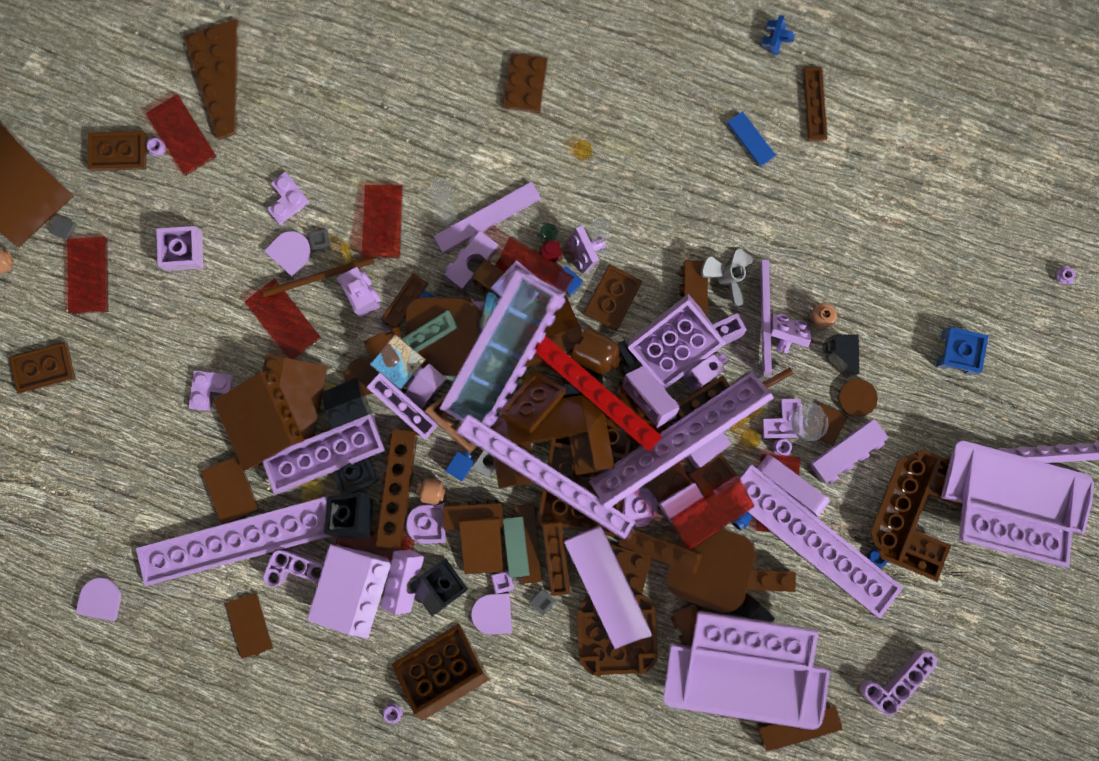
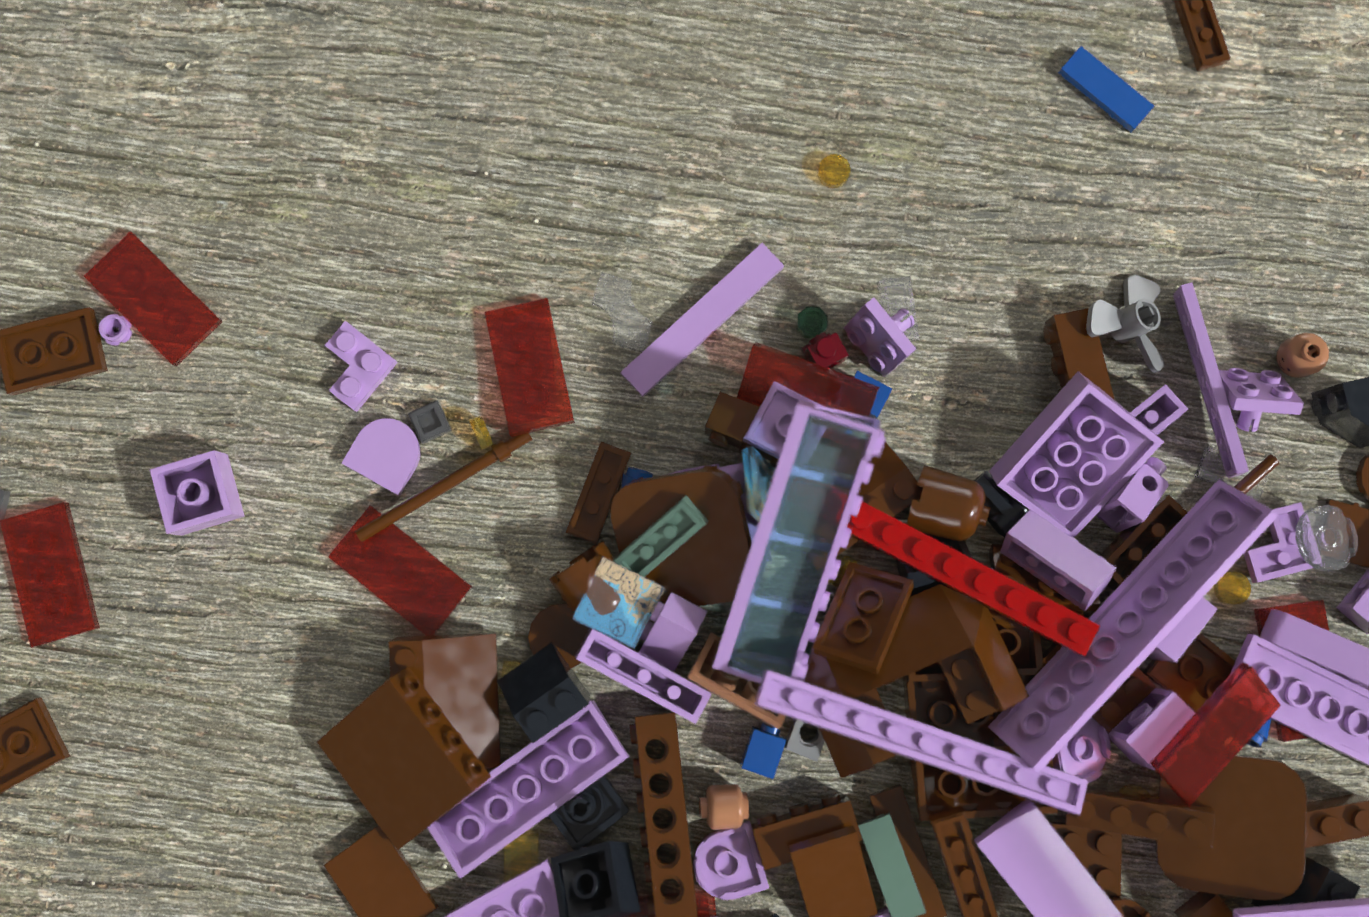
camera: 15 degrees left, 0 degrees up
(204, 385) = (292, 719): lavender plate -> none
(216, 68) = (186, 172): reddish brown wing -> none
(358, 290) = (520, 497): lavender hinge -> none
(479, 247) = (704, 372): lavender arch -> none
(525, 83) = (710, 81): reddish brown plate -> none
(612, 297) = (944, 405): reddish brown tile -> none
(782, 442) = (1297, 586): lavender plate -> none

